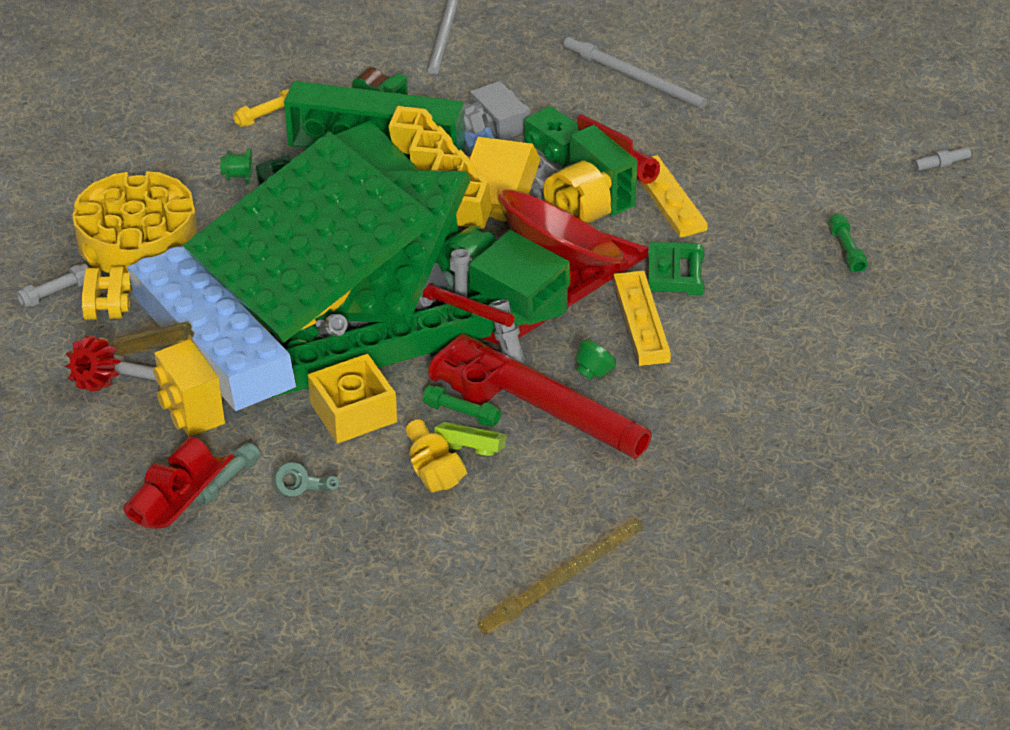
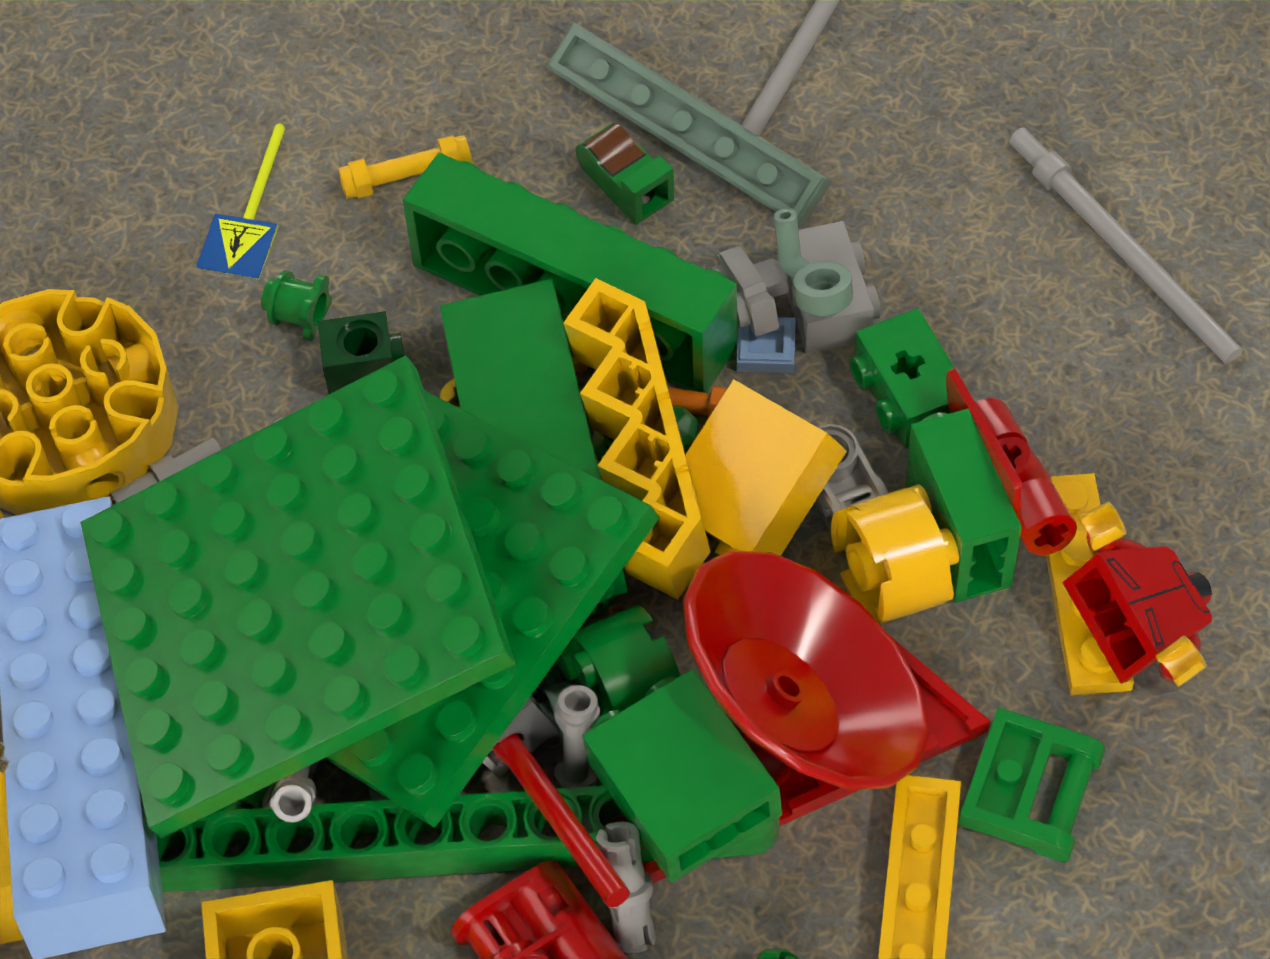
camera: 20 degrees right, 15 degrees up
(193, 153) = (238, 243): none -> piece
(391, 61) = (688, 124): none -> sand green tile
(500, 102) = (820, 286): none -> sand green plate
(698, 186) = (1139, 602): none -> red torso

